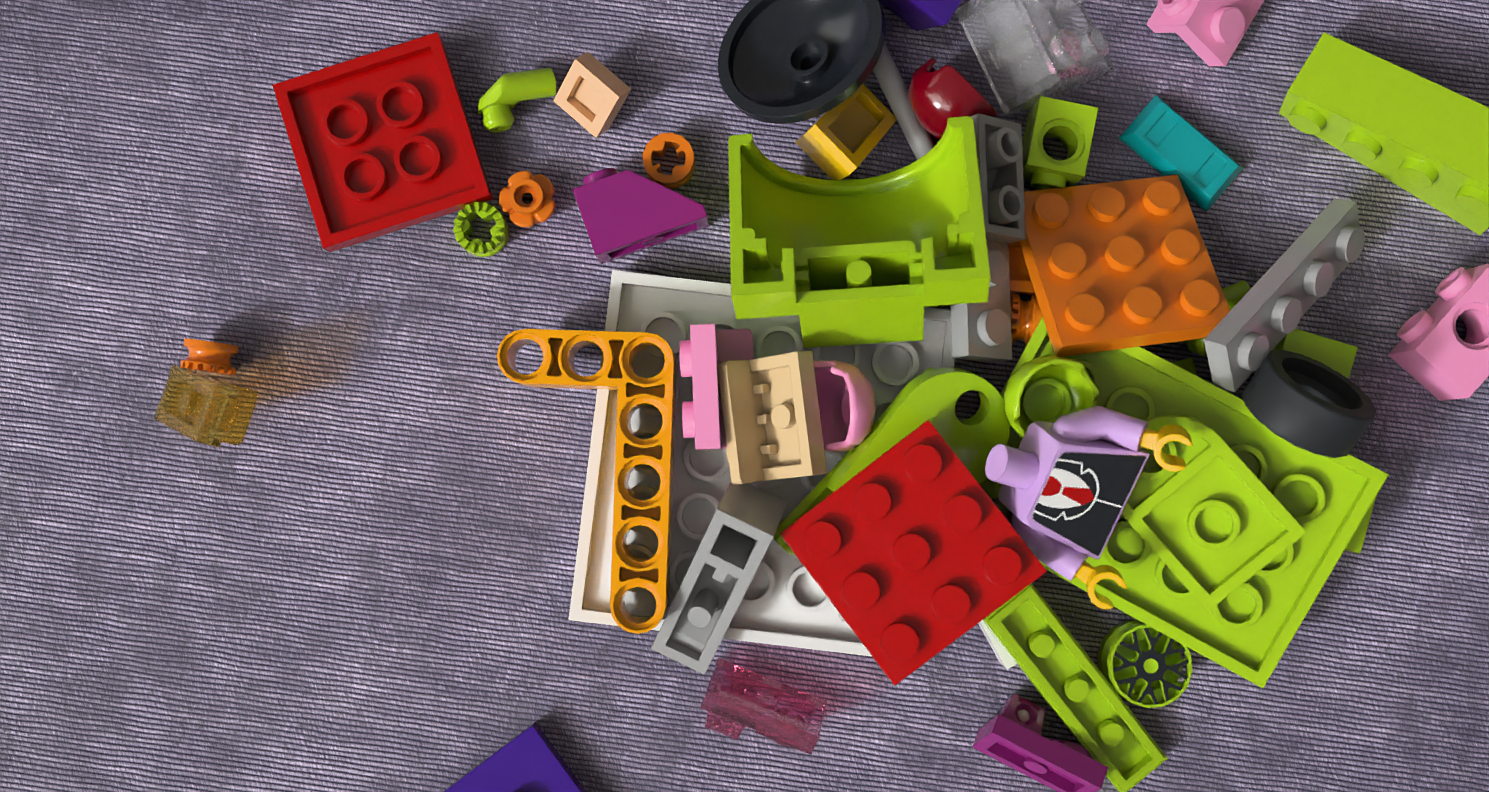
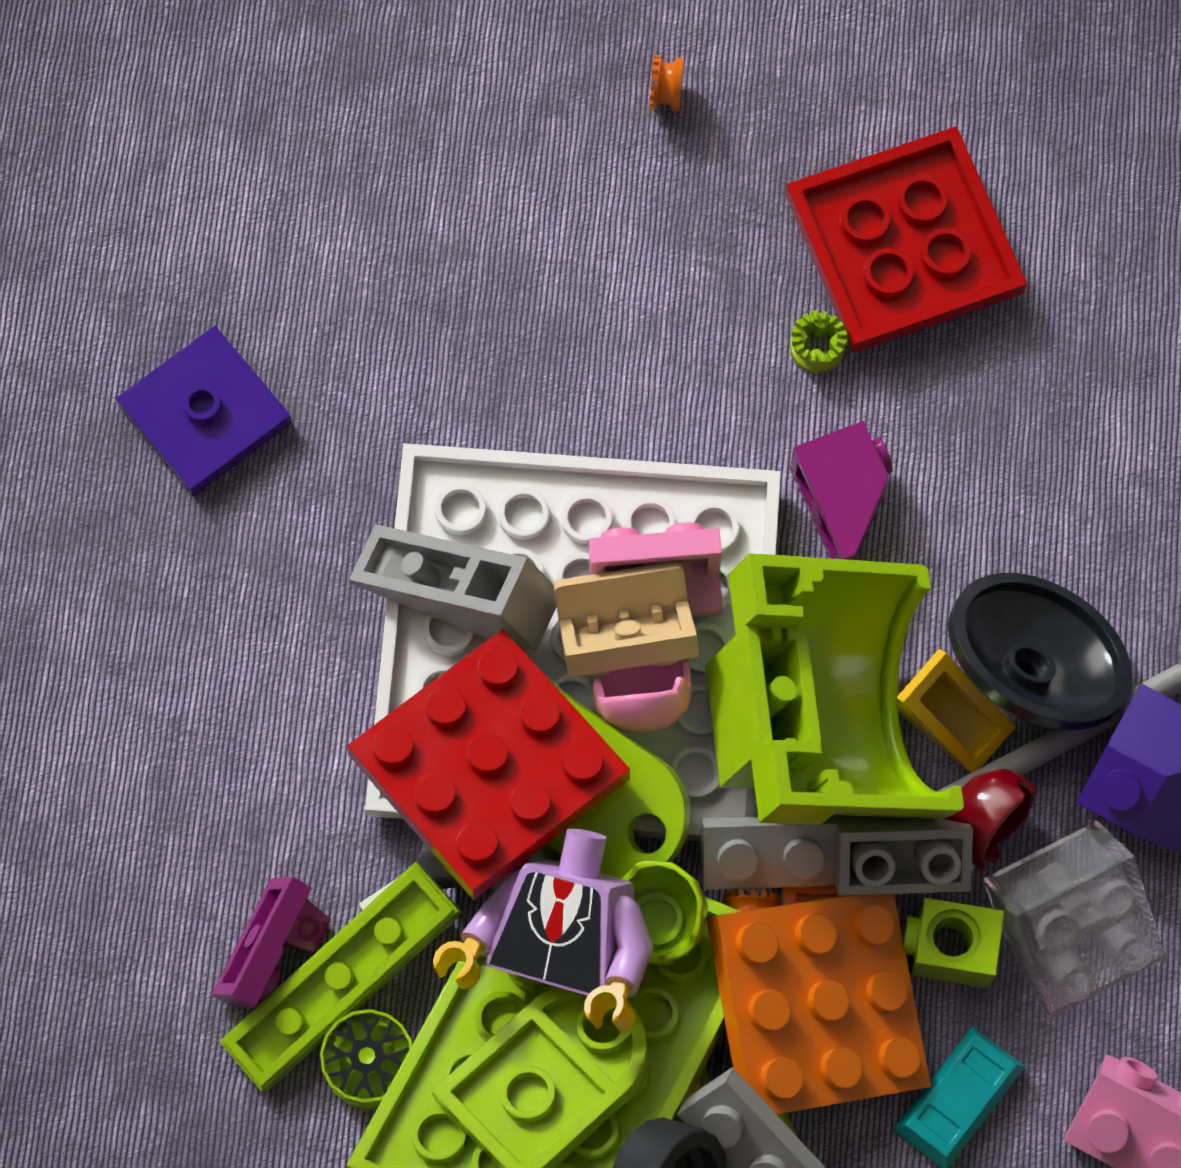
camera: 85 degrees right, 15 degrees down
(205, 407) = (613, 84): clear yellow slope -> none
(509, 91) = (970, 361): lime arm -> none
(535, 212) = (849, 401): orange plate -> none
(592, 94) = (972, 444): light nougat plate -> none
(633, 392) = (580, 486): light orange beam -> none
(657, 148) = (923, 520): orange bush -> none
(775, 710) = (317, 639): clear pink hinge -> none

